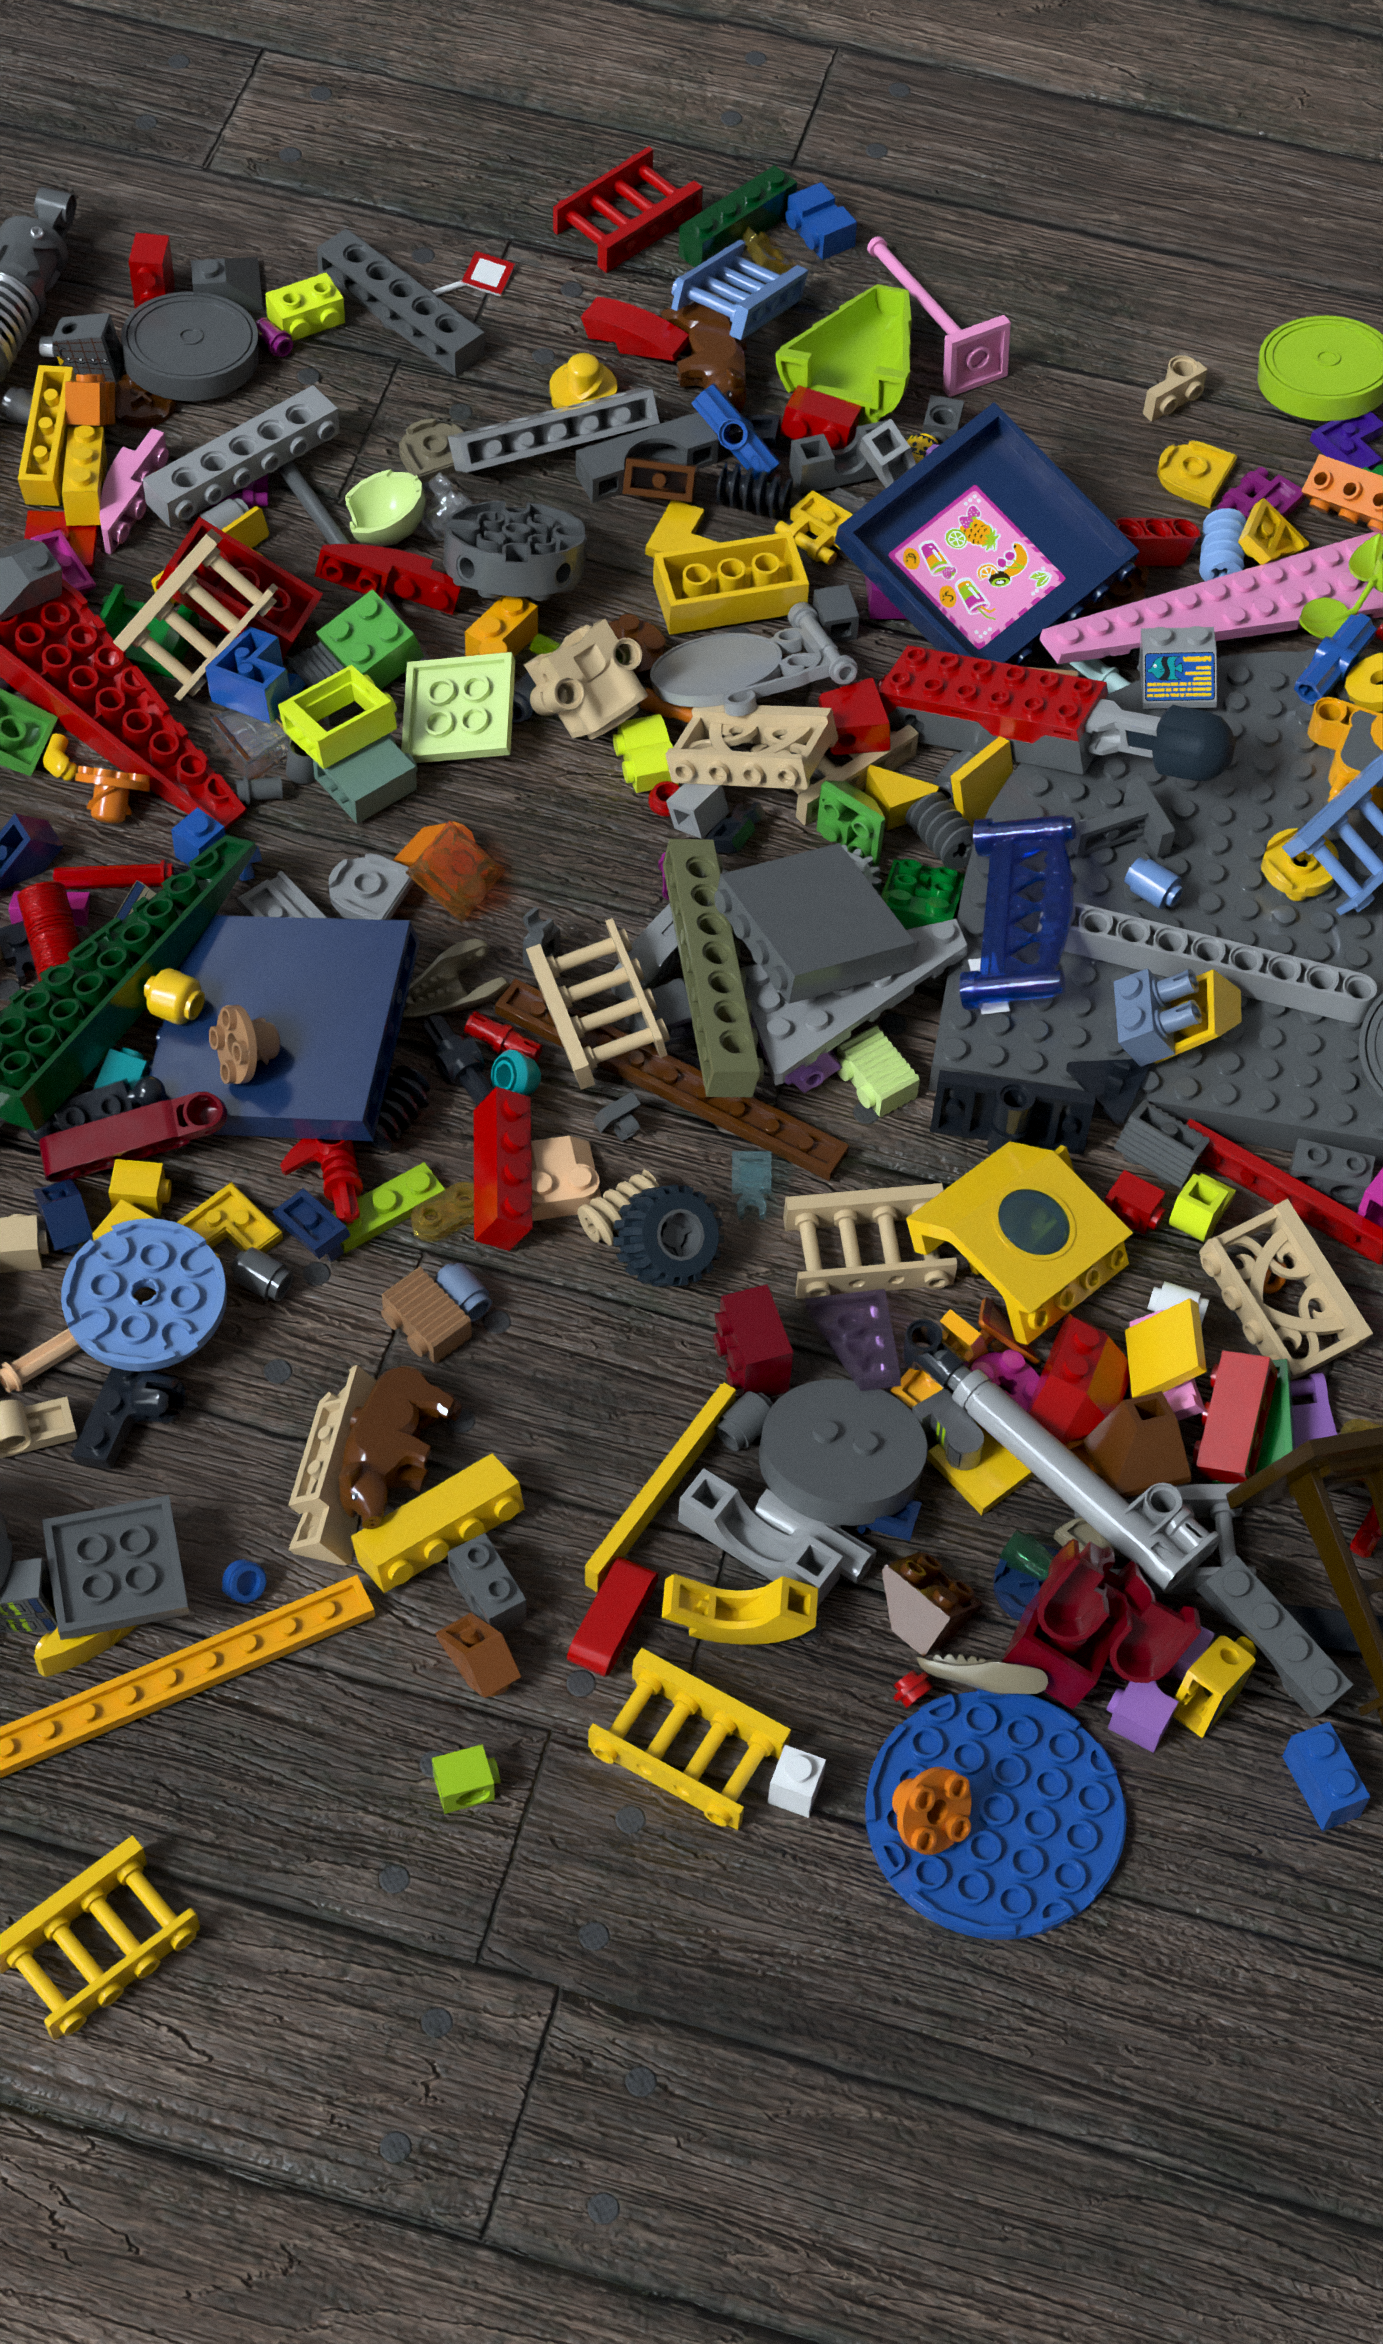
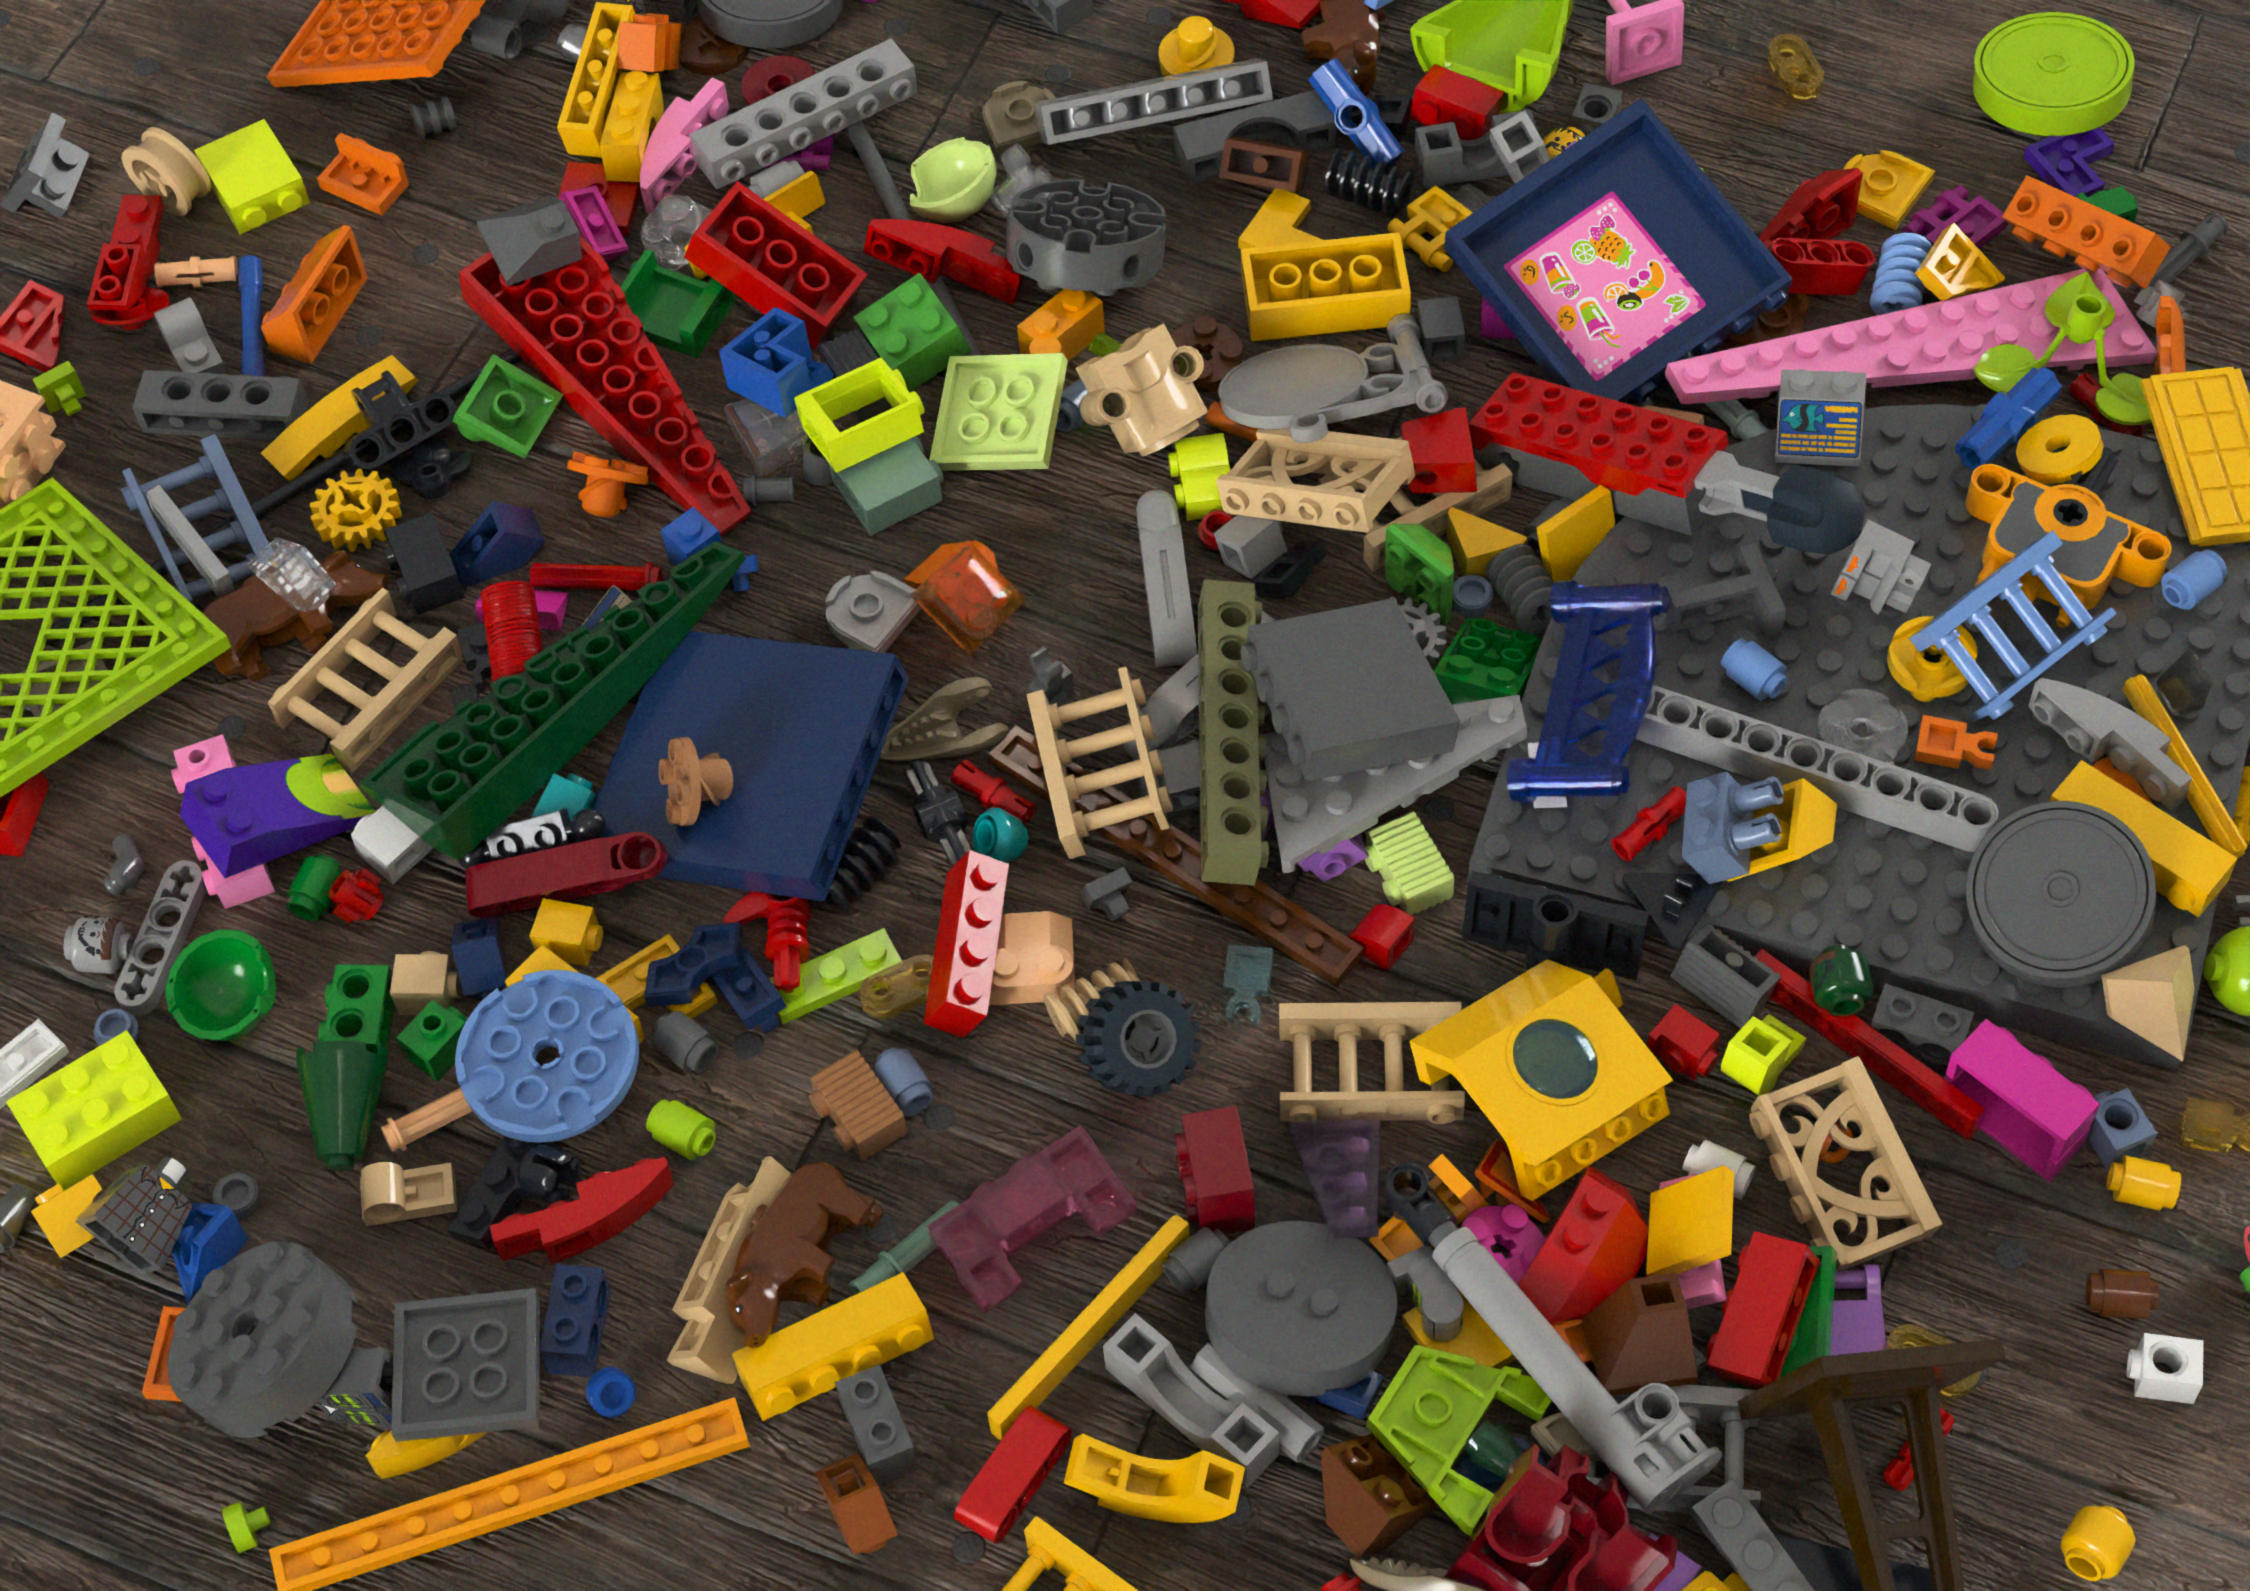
camera: 15 degrees right, 0 degrees up
(33, 1291) = (432, 1039): none -> green brick
(55, 759) = (554, 441): yellow arm -> none
(136, 564) = (671, 229): none -> clear plate
(174, 996) = (629, 720): yellow head -> none
(185, 582) = (707, 252): tan fence -> none
(202, 1522) = (575, 1320): none -> dark blue brick
(206, 425) = (772, 76): none -> dark red dish
(211, 1425) = (605, 1208): none -> red slope
(249, 1217) = (680, 975): none -> dark blue tile
(271, 1349) = (681, 1129): none -> lime brick
(278, 899) = (769, 618): light grey plate -> none
(493, 1434) = (902, 1256): none -> sand green axle
(587, 1388) = (1023, 1206): none -> clear pink bracket
(627, 844) = (1165, 579): none -> light grey piece
(865, 1132) = (1384, 934): none -> red brick
(897, 840) = (1472, 595): none -> sand blue tile
(969, 1530) = (1433, 1414): none -> lime wing
(1084, 1019) = (1650, 824): none -> red pin
(1106, 372) = (1799, 73): none -> clear yellow plate
(1147, 490) = (1818, 208): none -> red wedge
(1182, 384) = (1883, 83): tan plate -> none
(1250, 791) = (1881, 569): none -> light grey hips
(1256, 910) = (1869, 709): none -> clear plate
(1262, 1138) = (1841, 980): none -> dark green head
(1325, 934) = (1947, 743): none -> orange plate

